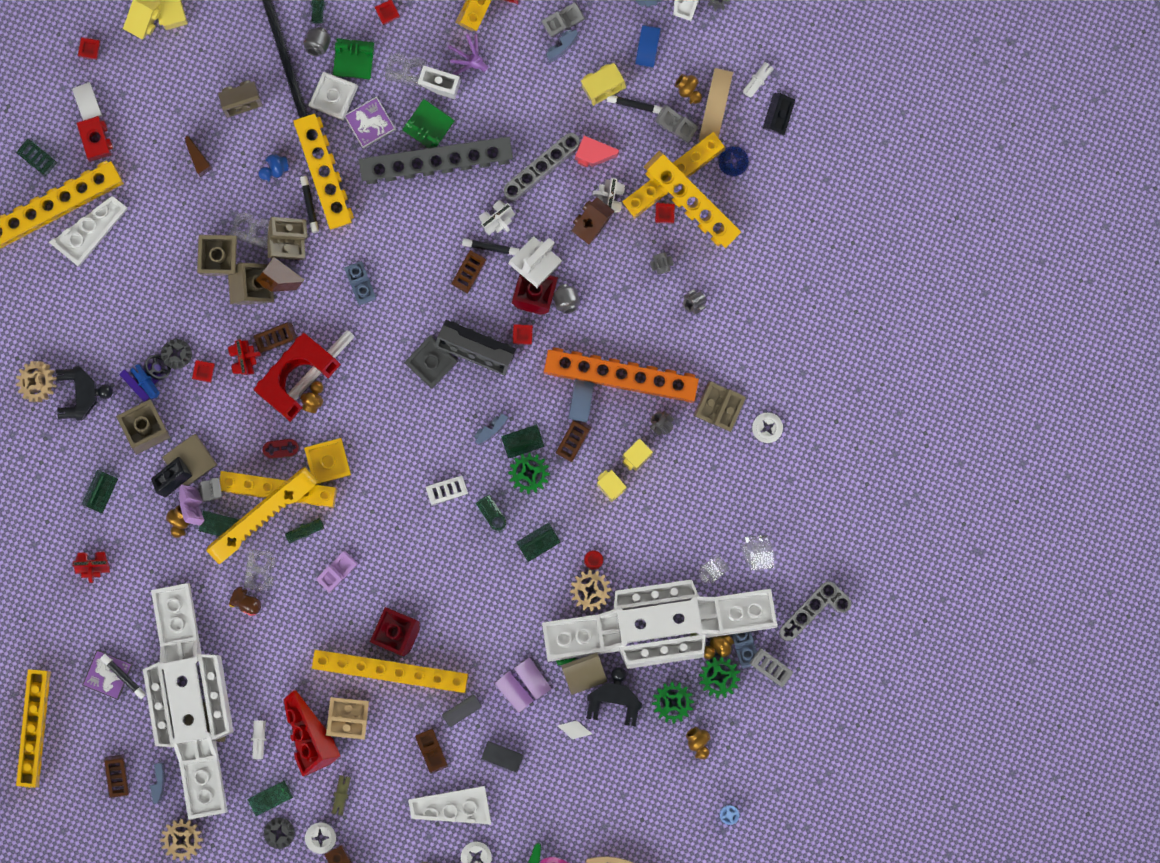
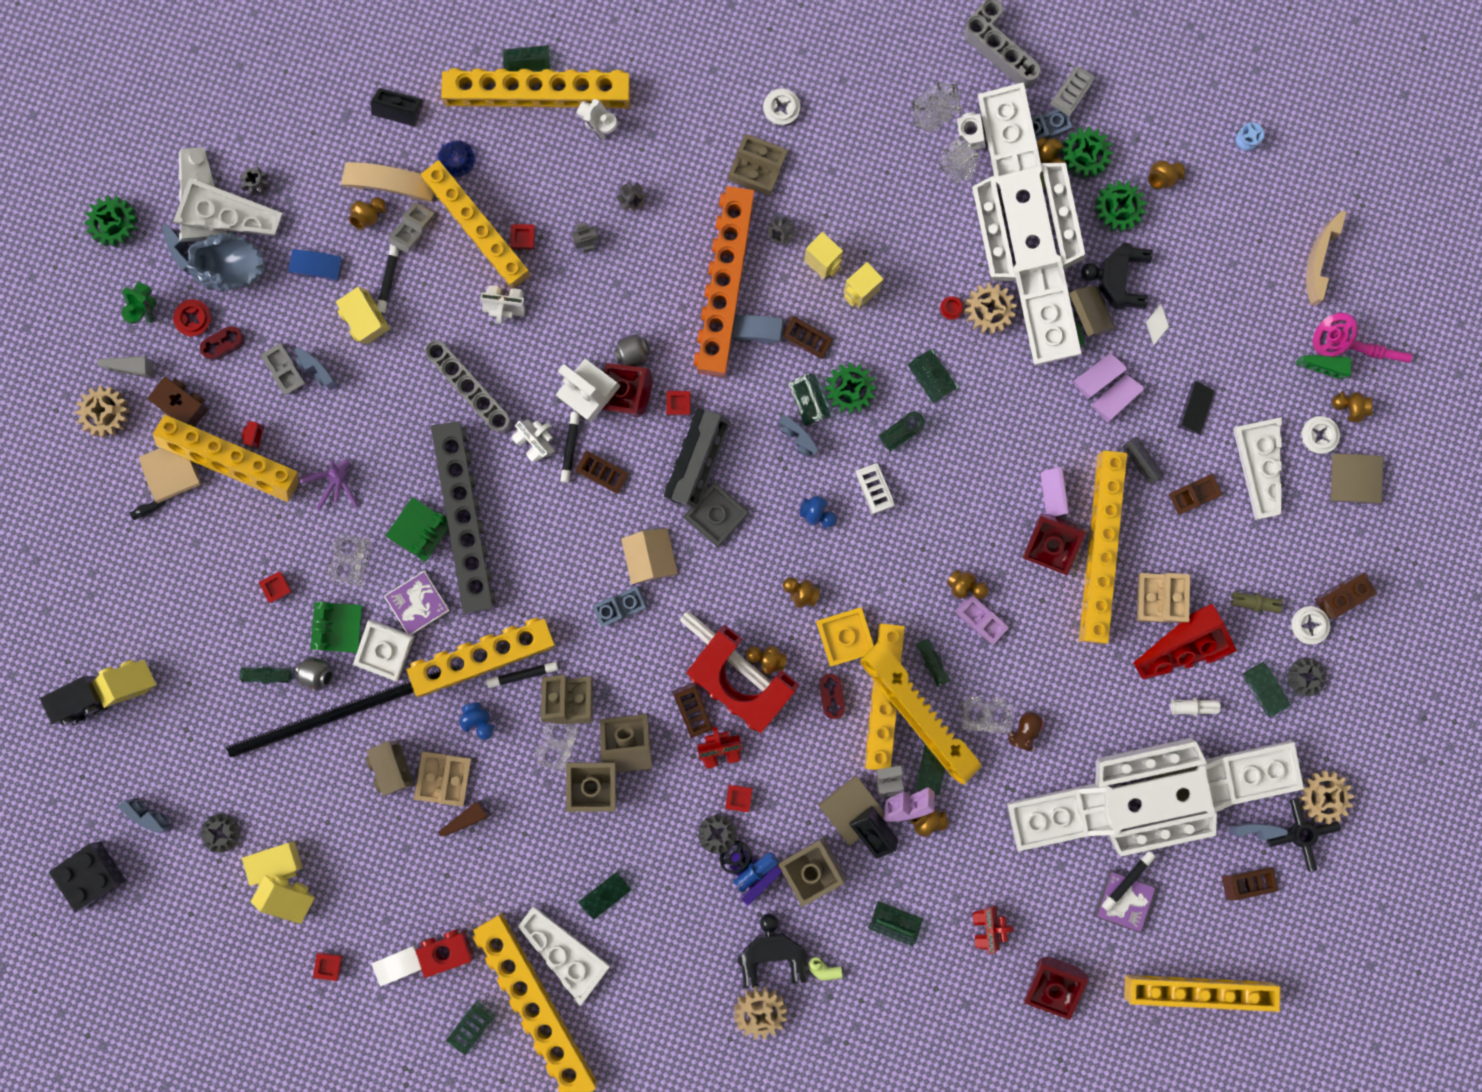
camera: 90 degrees left, 0 degrees up
(43, 614) = (1056, 987): none -> dark red slope
(65, 432) = (822, 971): none -> yellowish green arm
(133, 264) = (604, 895): none -> clear green slope
(154, 828) = (1312, 834): none -> black bar
(230, 139) = (442, 778): none -> tan slope
(279, 277) = (616, 707): slope -> none
(363, 428) = (801, 593): none -> pearl gold animal
(366, 558) = (963, 583): none -> pearl gold animal
(399, 308) = (649, 555): none -> tan slope
(428, 439) = (813, 509): none -> blue animal
(437, 635) = (1054, 492): none -> lavender slope
(439, 82) = (363, 515): white slope -> none
(592, 220) = (527, 310): reddish brown brick -> none
(594, 152) = (448, 324): coral slope -> none
(661, 163) = (541, 158): yellow brick -> none
(731, 578) = (968, 120): none -> white brick
(757, 80) = (354, 131): white axle -> none
(758, 276) = (597, 118): none -> white hips
(786, 160) = (523, 96): none -> yellow brick
(814, 220) = (532, 58): none -> clear green slope

